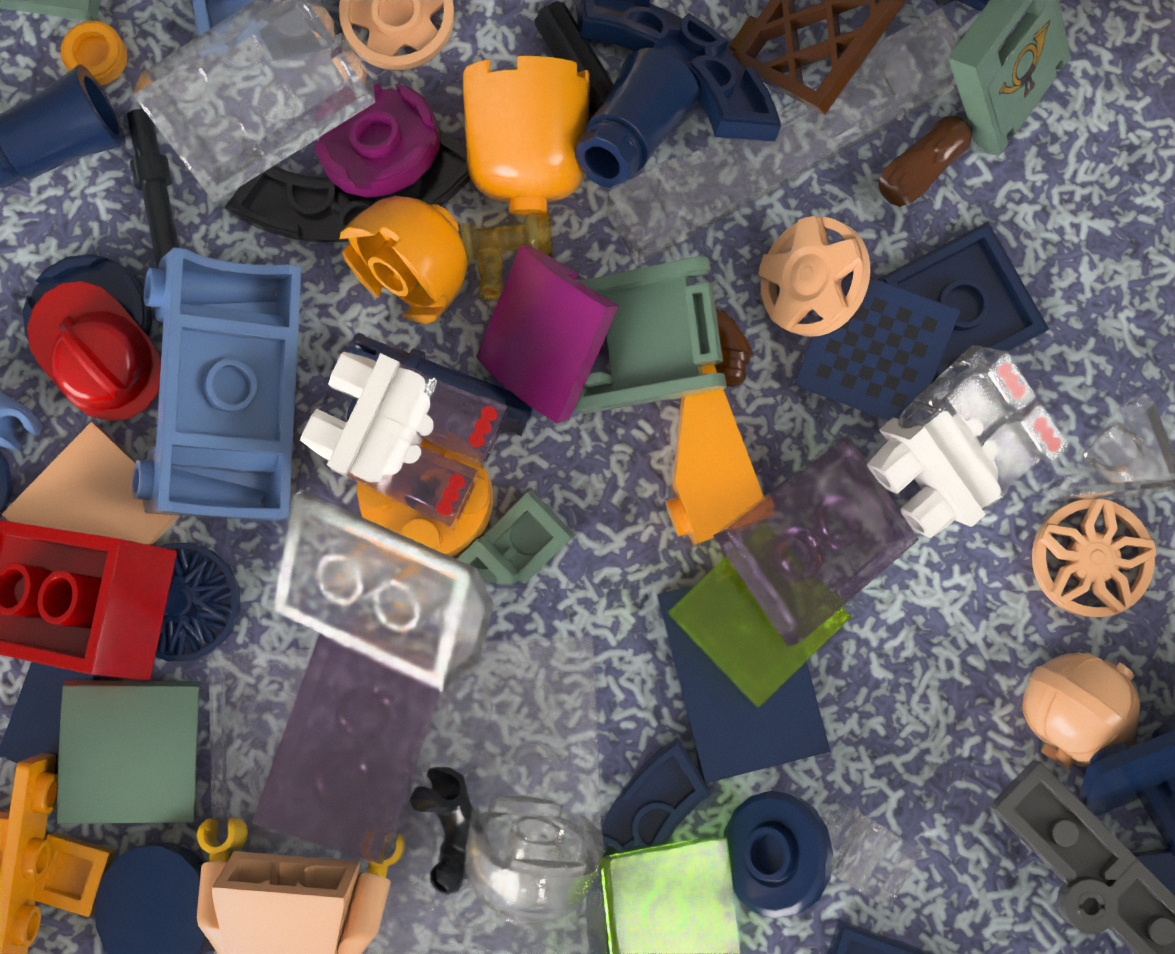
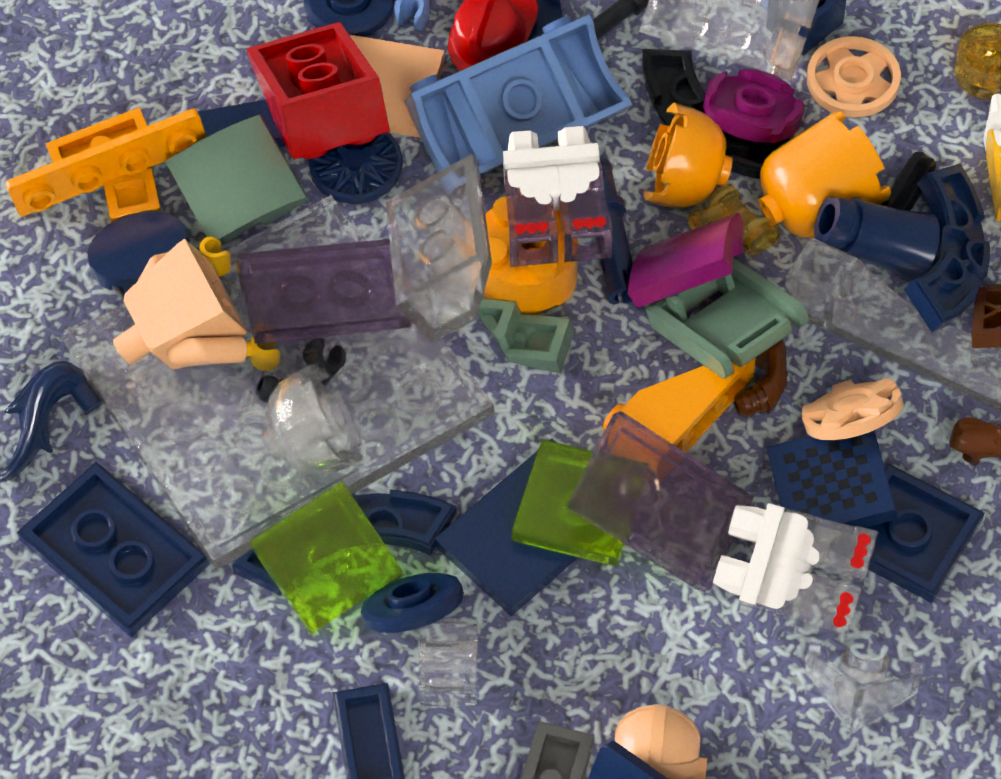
camera: 65 degrees right, 25 degrees down
(1094, 558) = (780, 722): light nougat wheel -> none

